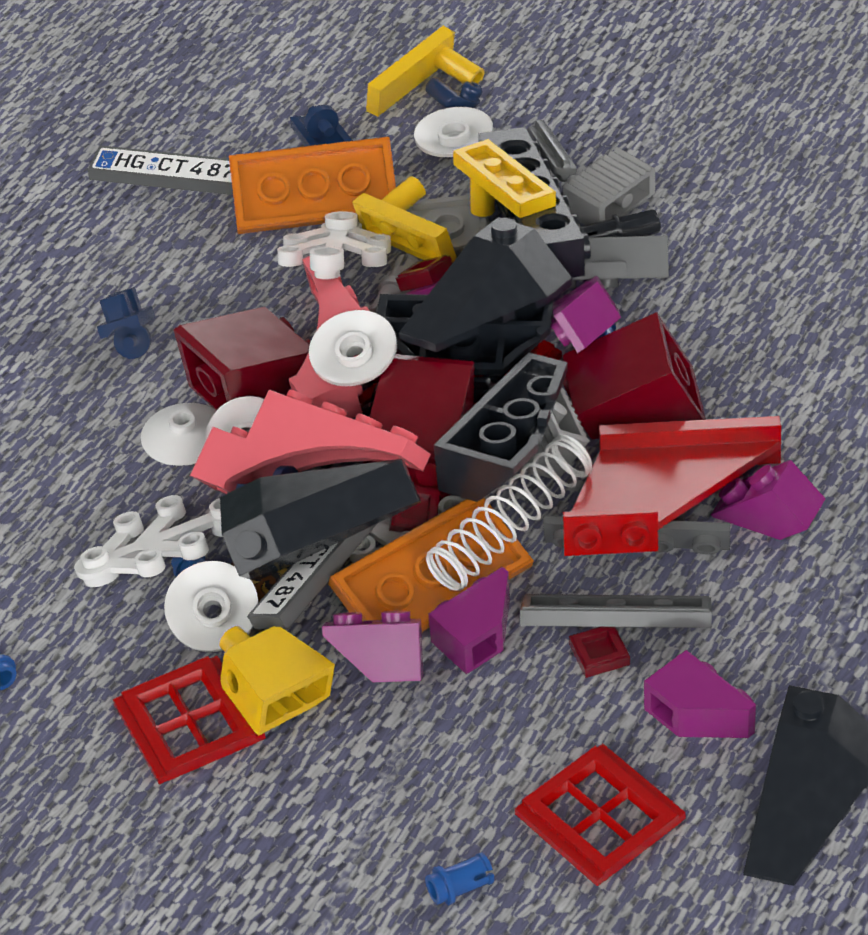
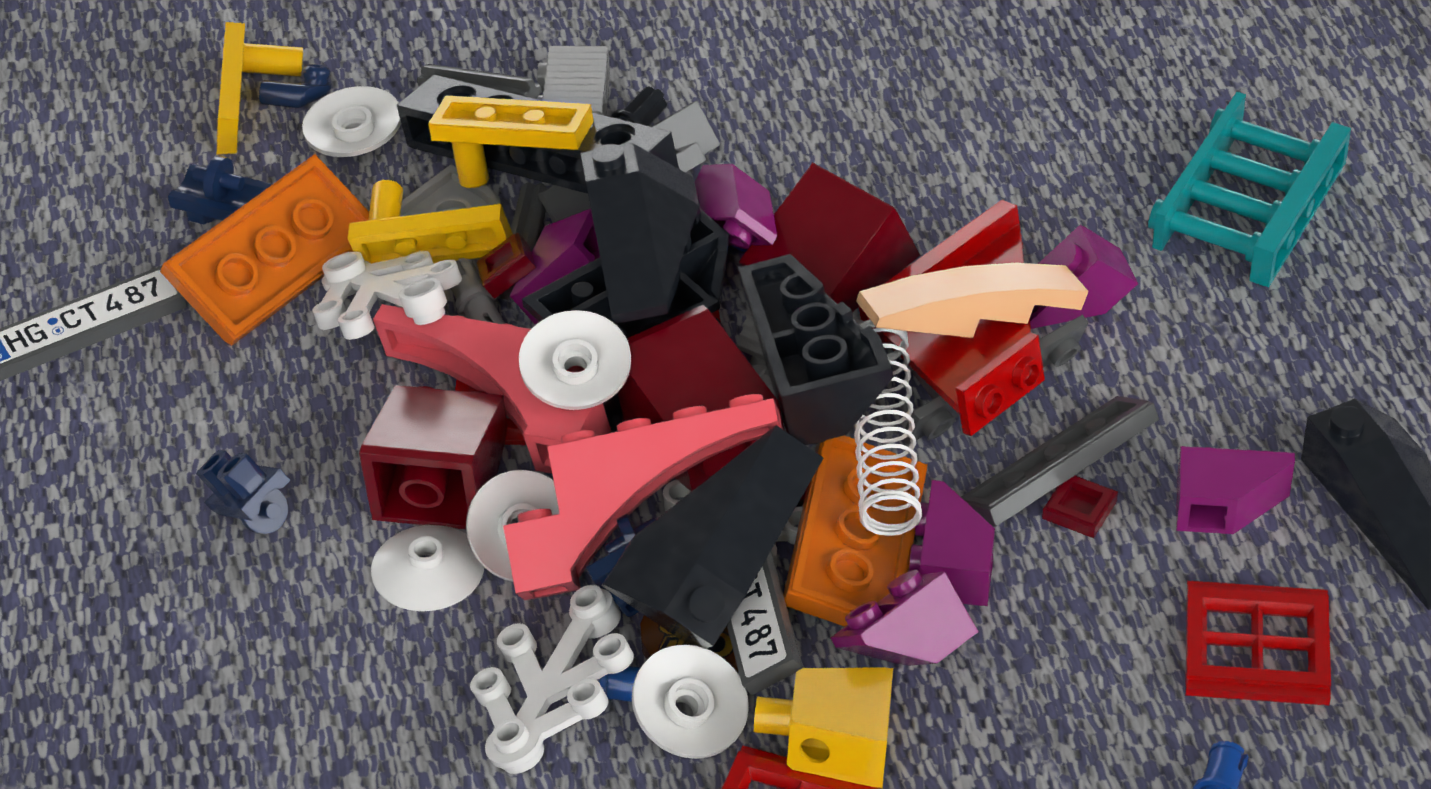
camera: 45 degrees left, 0 degrees up
(638, 455) = (959, 297): none -> light nougat slope

